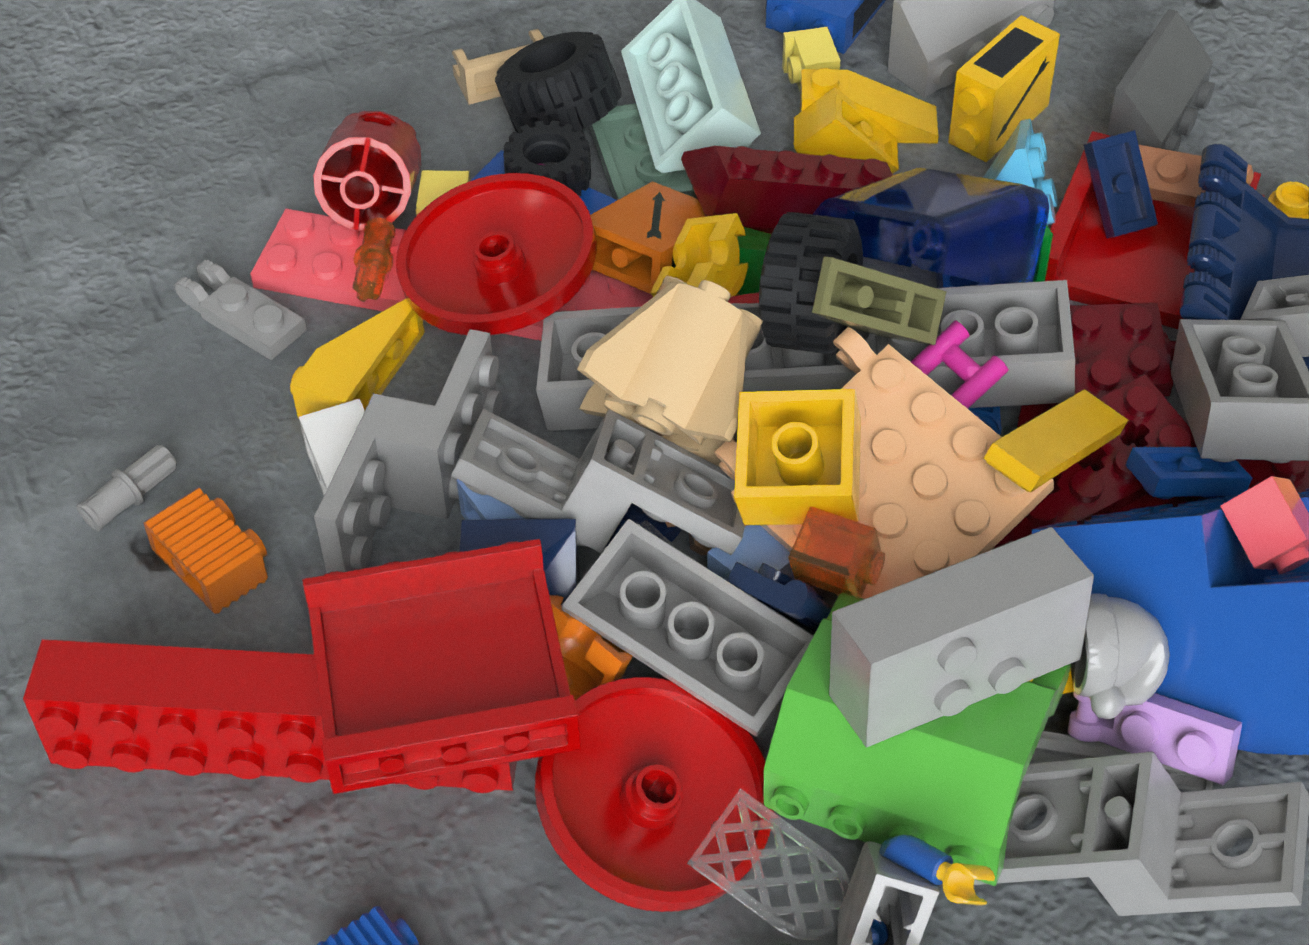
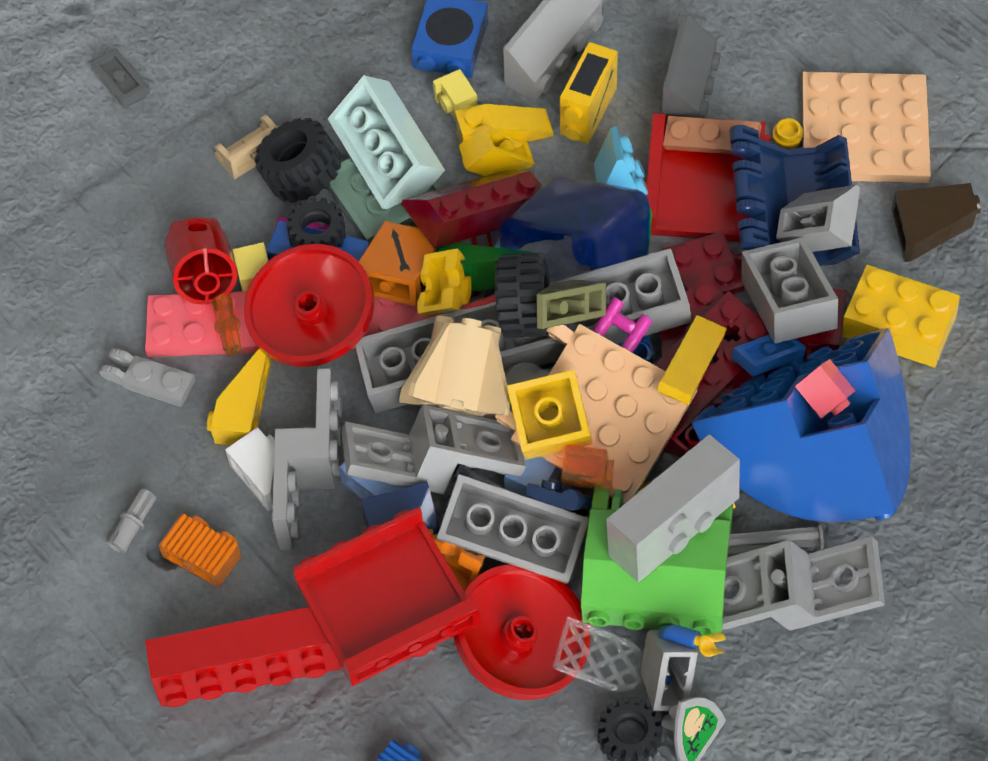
camera: 15 degrees left, 10 degrees up
(1120, 184) = (680, 151): dark blue plate -> none
(1121, 656) = (760, 488): light grey piece -> none
(1173, 730) = (784, 519): lavender plate -> none

